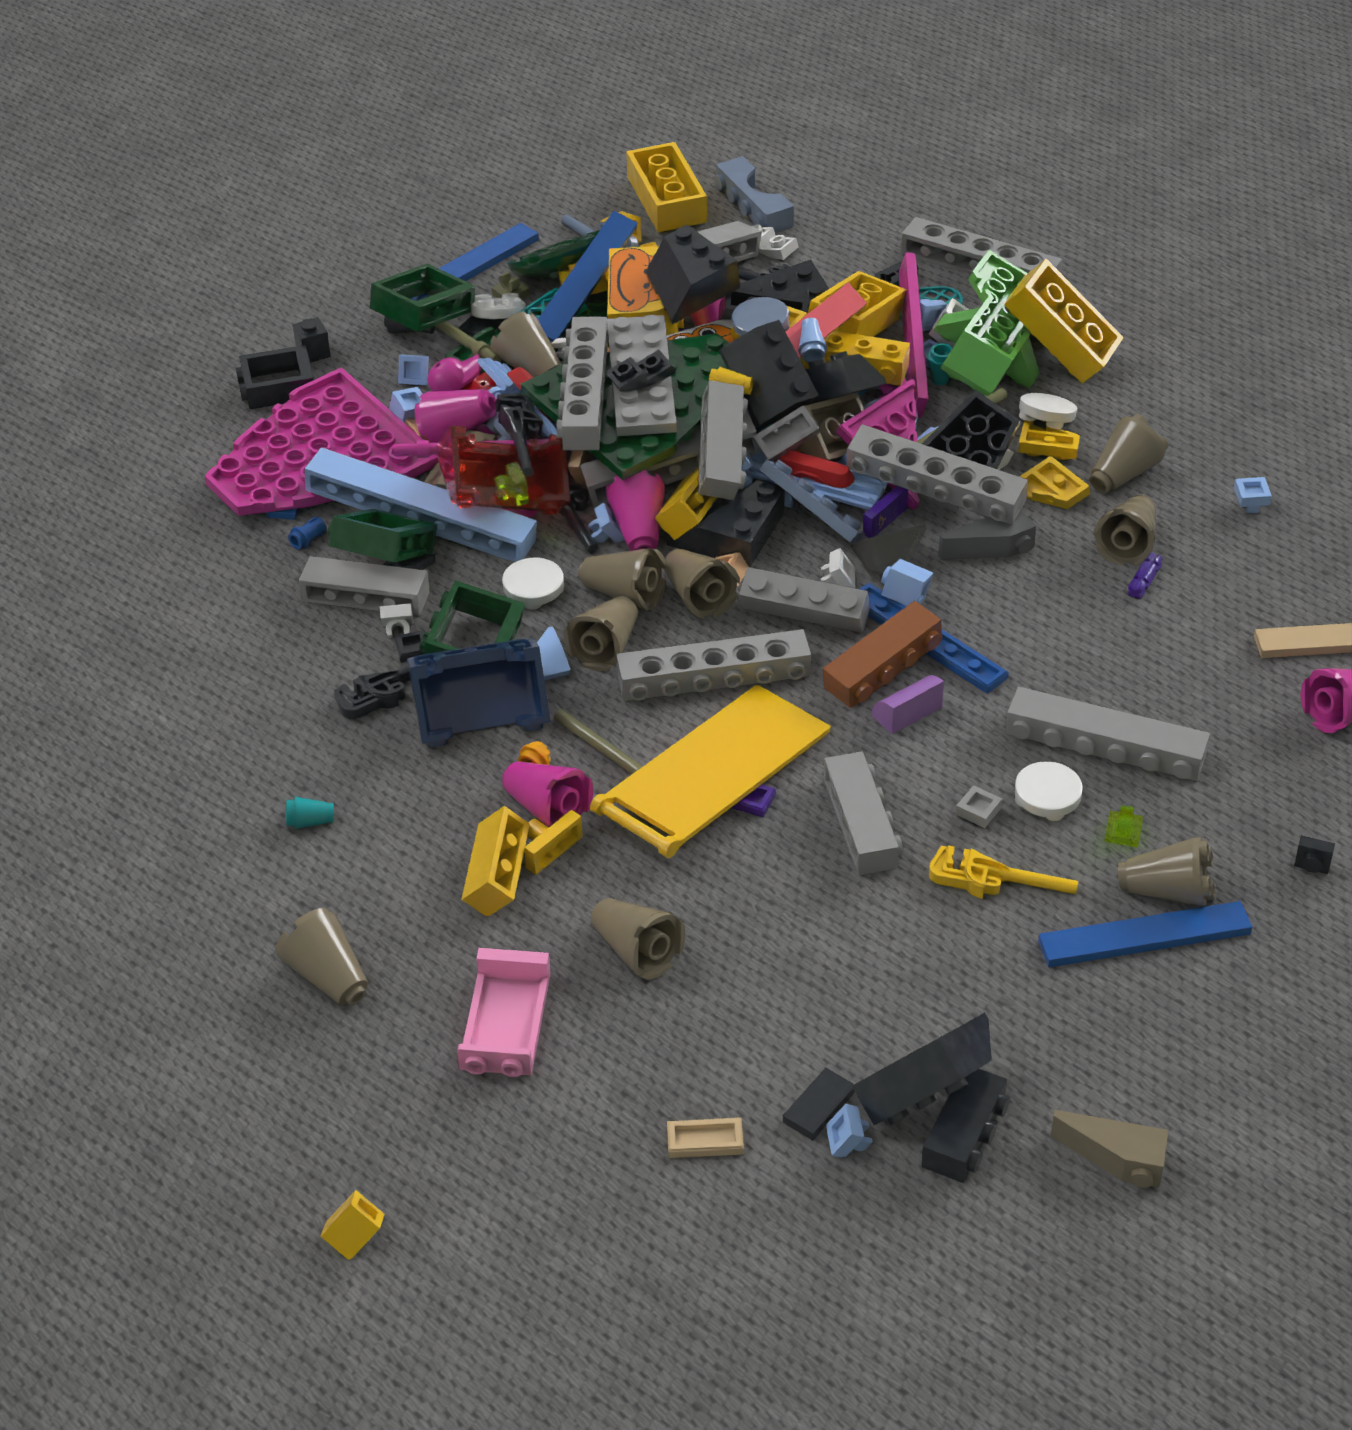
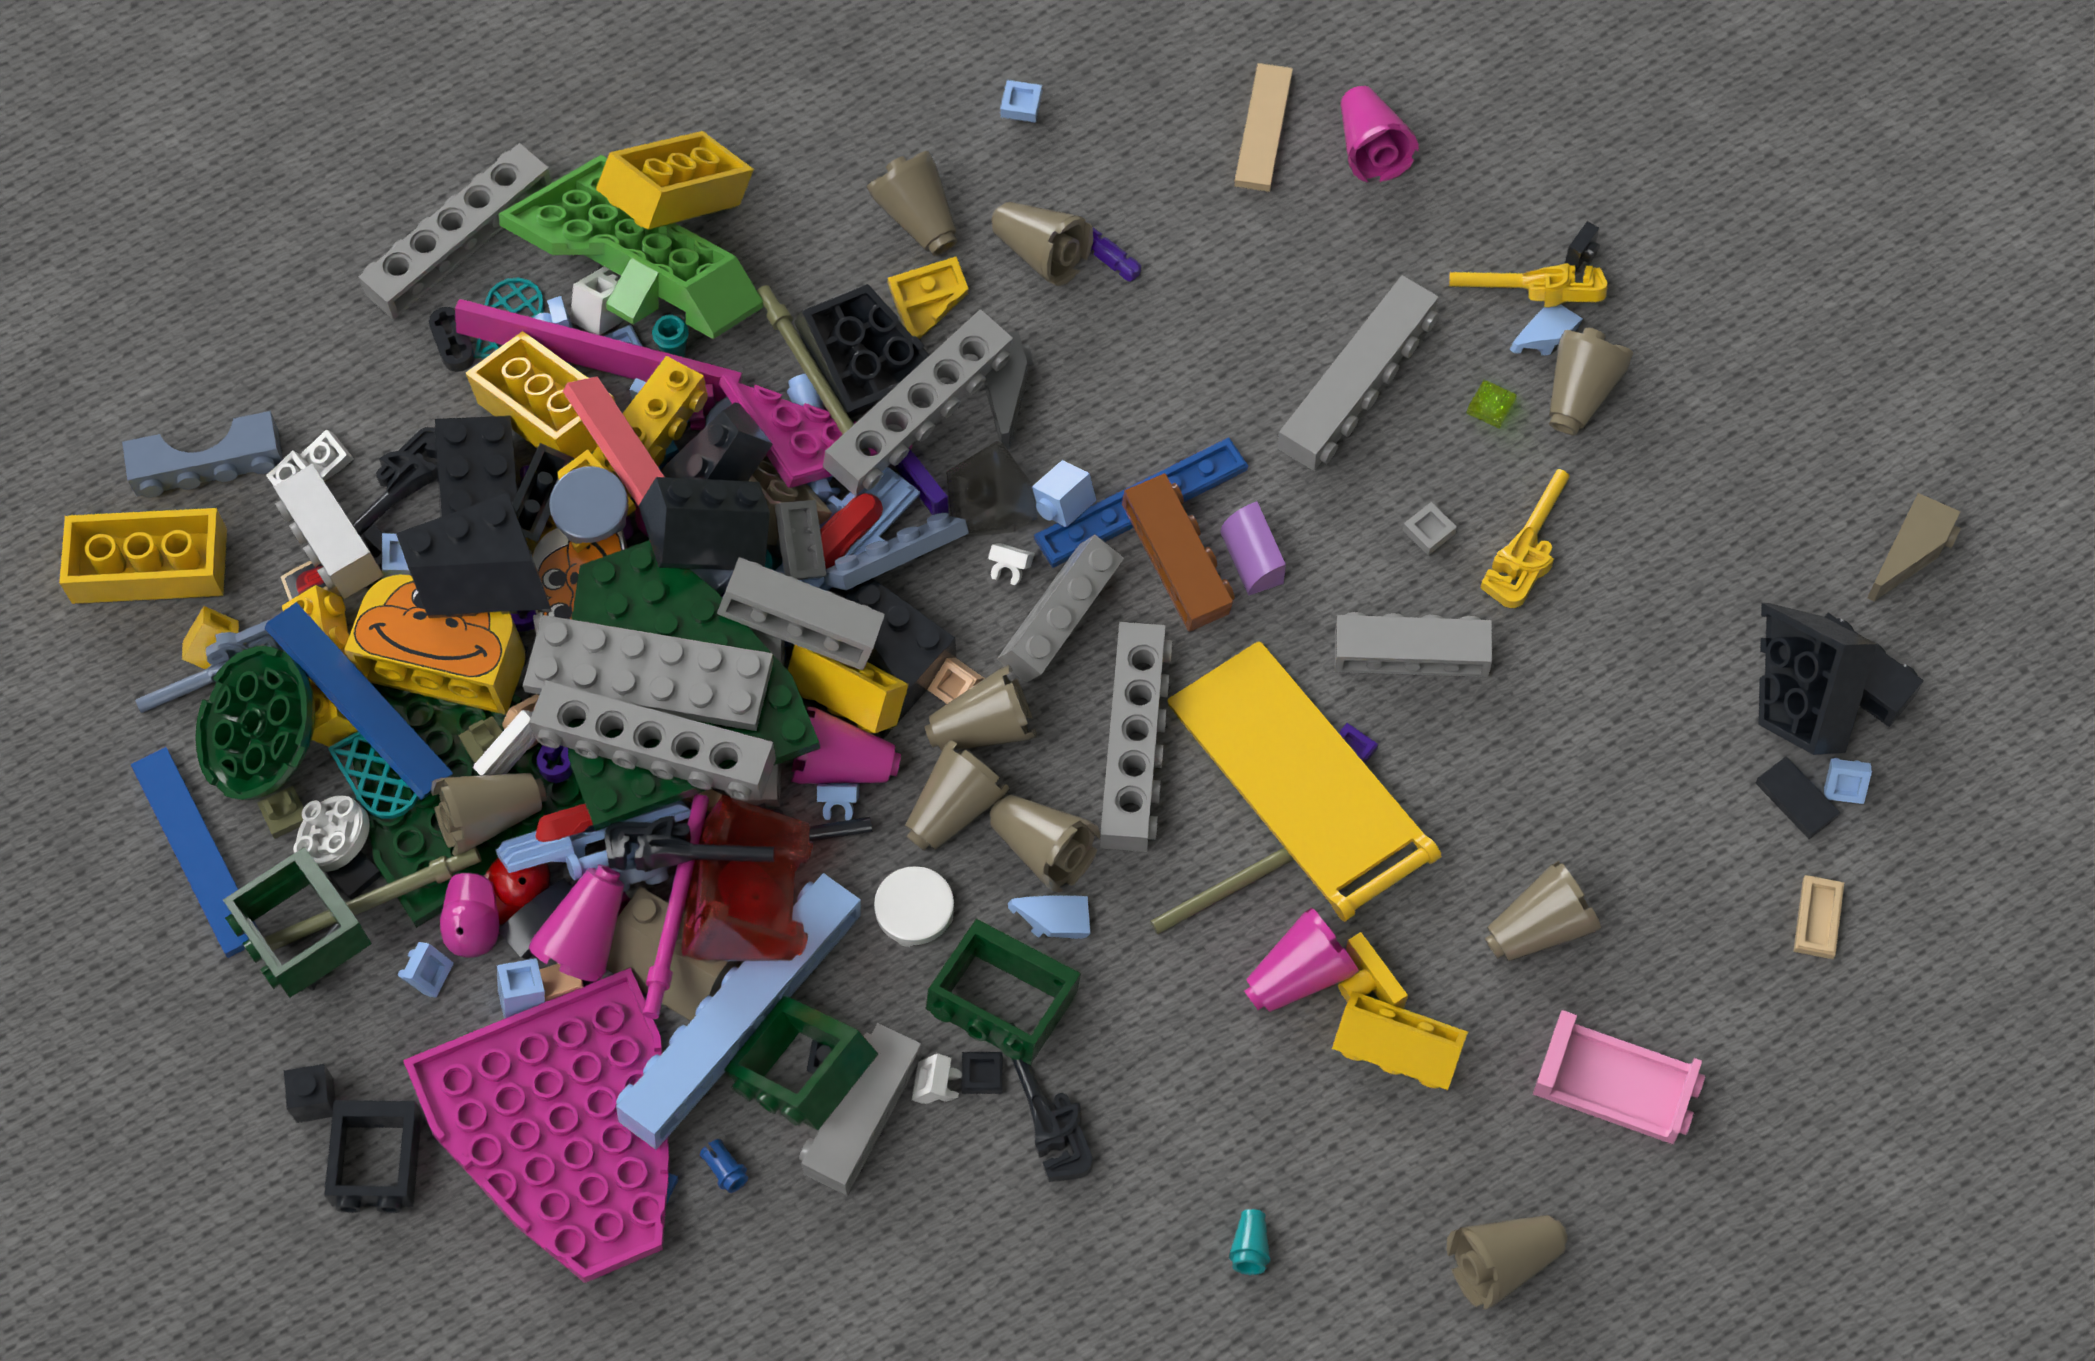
camera: 75 degrees left, 20 degrees up
(352, 1225) = (1874, 1287): yellow panel -> none
(478, 689) = (1108, 997): dark blue windscreen -> none
(512, 485) = (772, 879): clear neon green tile -> none
(535, 752) = (1226, 966): light orange plate -> none
(633, 376) = (673, 667): black slope -> none
(728, 376) = (713, 574): yellow cone -> none
(811, 341) = (661, 458): light blue cone -> none
(1047, 408) = (796, 254): white tile -> none
(1048, 442) = (844, 270): yellow wing -> none
(1048, 790) = (1422, 455): white tile -> none
(1144, 934) = (1641, 437): blue tile -> none
(1228, 853) = (1546, 329): none -> light blue slope
(1261, 841) = (1546, 284): none -> yellow piece

